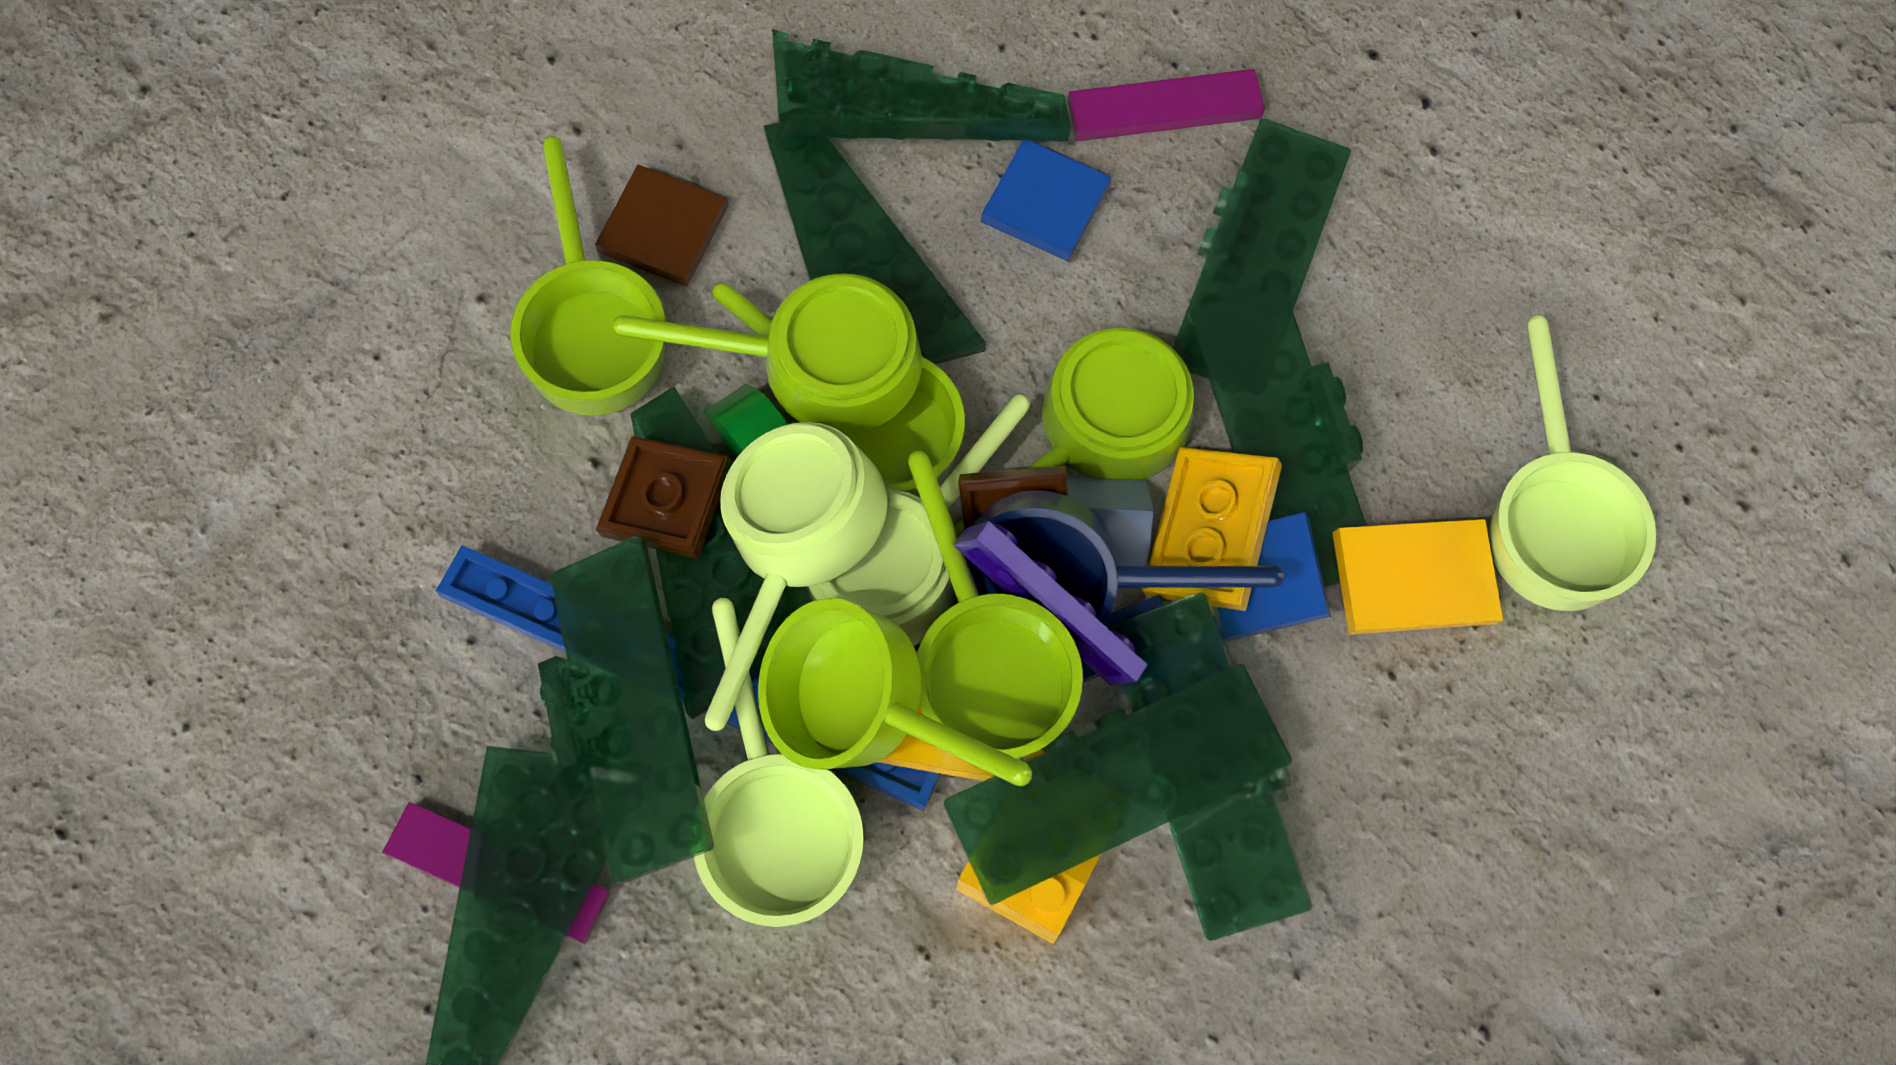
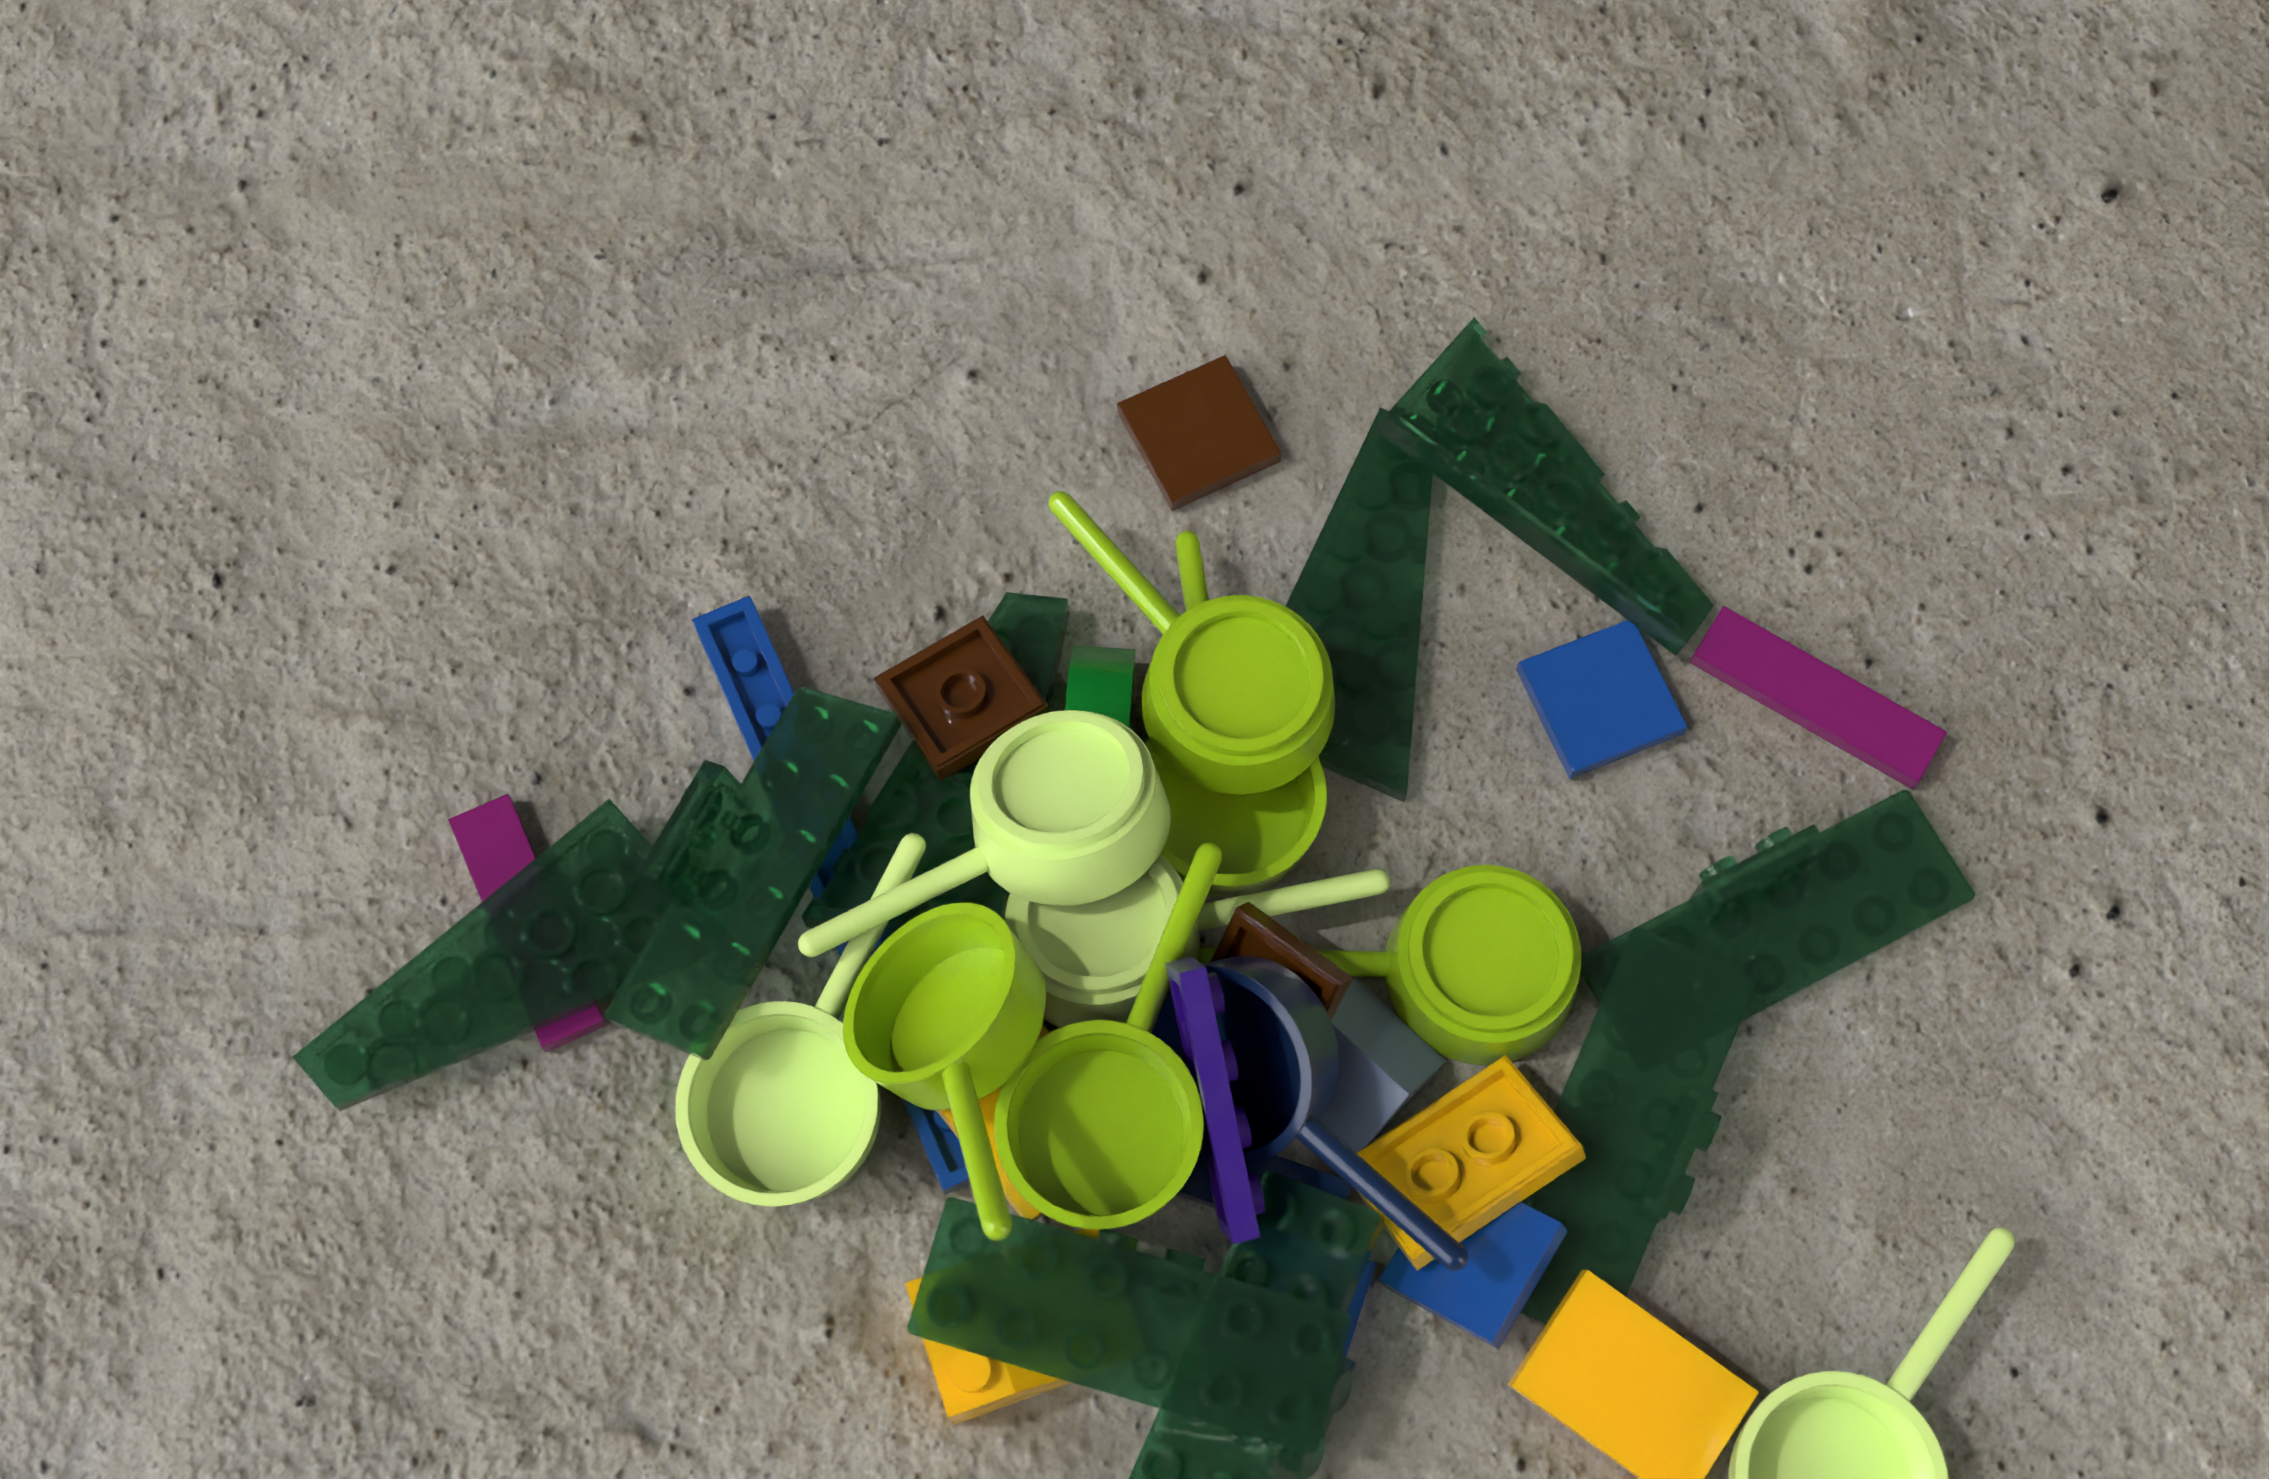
camera: 45 degrees right, 0 degrees up
(567, 317) = (1022, 450): lime piece -> none

